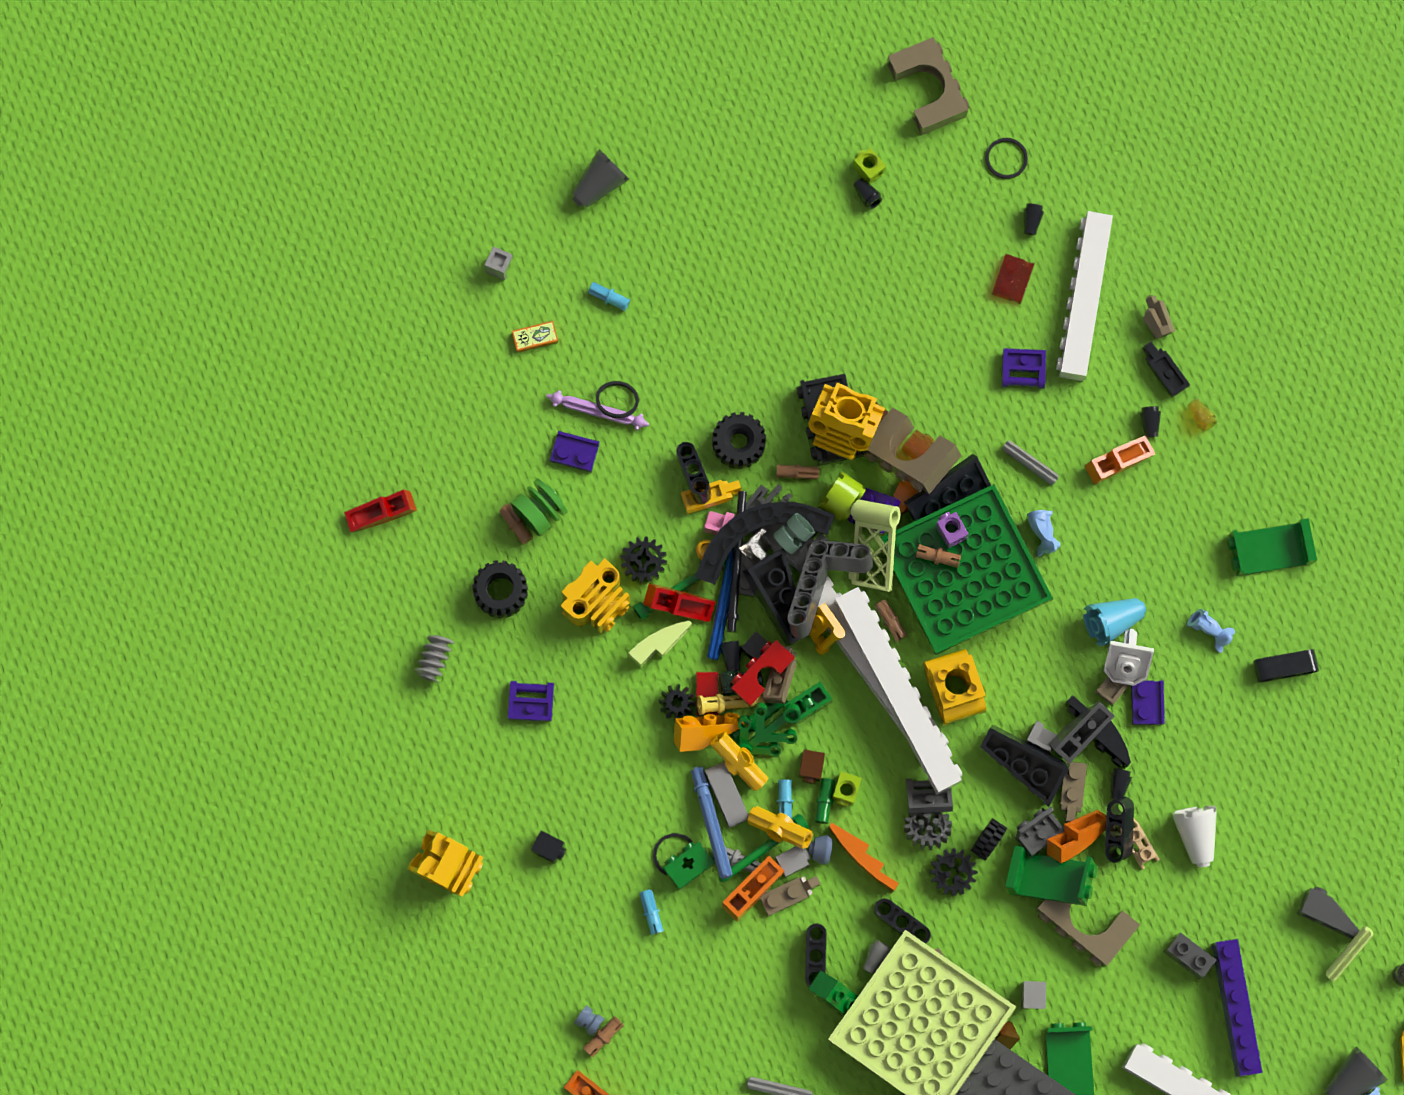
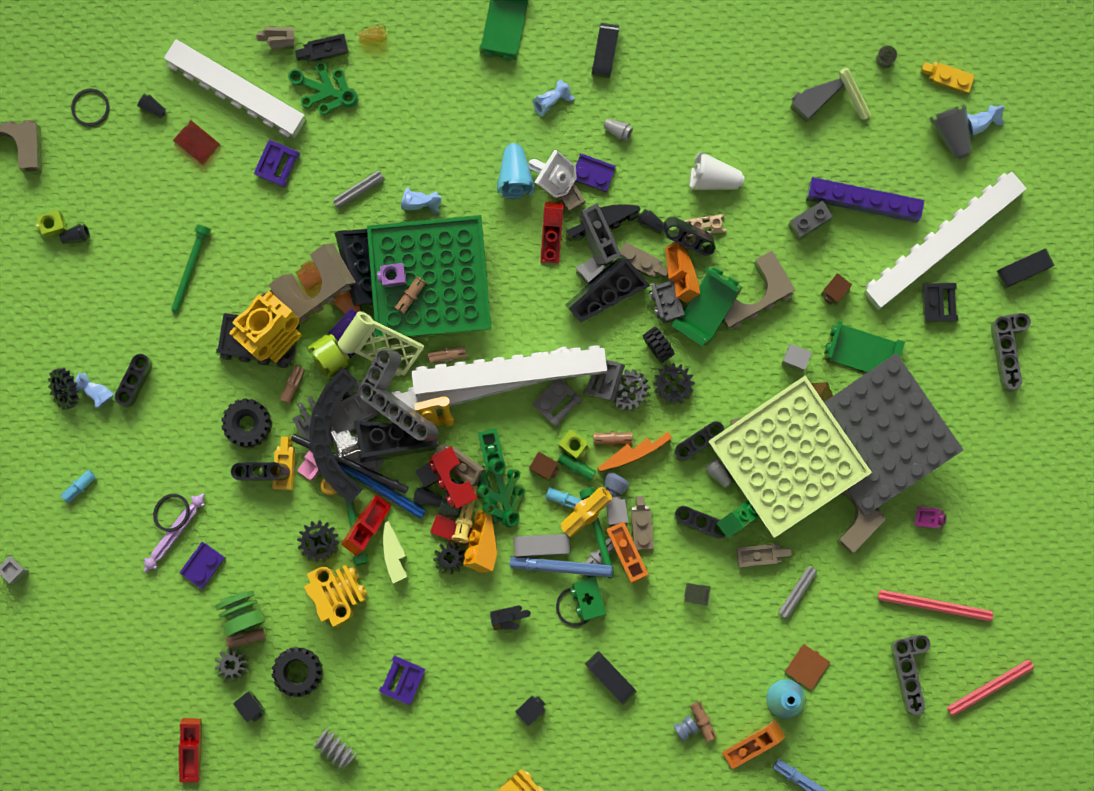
camera: 65 degrees left, 5 degrees up
(446, 554) = (249, 707): none -> black brick
(474, 522) = (231, 672): none -> dark grey gear
(535, 336) = (88, 562): tile -> none
(613, 919) = (610, 677): none -> black beam
(634, 780) = (501, 618): none -> black rock
(651, 912) = (615, 644): medium azure axle -> none
(703, 242) = (63, 388): none -> black gear
(713, 276) = (97, 392): none -> light blue animal
(736, 980) = (697, 594): none -> clear smoke panel
(739, 761) = (518, 524): yellow piece -> none
(748, 304) = (133, 390): none -> black beam
(794, 533) = (346, 408): sand green wheel -> none
(804, 1034) = (761, 555): none -> dark tan hinge
(869, 828) = (612, 438): none -> medium nougat pin
(889, 749) = (552, 398): none -> dark grey plate
(918, 319) = (201, 234): none -> green piece
(949, 705) = (537, 335): yellow piece -> none
(1066, 681) = (552, 232): none -> red slope
(1119, 459) = (384, 115): orange slope -> none
(1122, 389) = (326, 89): none -> green plant
(1125, 1011) = (836, 289): none -> reddish brown brick
(1150, 419) = (361, 77): black cone -> none
(1206, 712) = (619, 129): none -> light grey cone

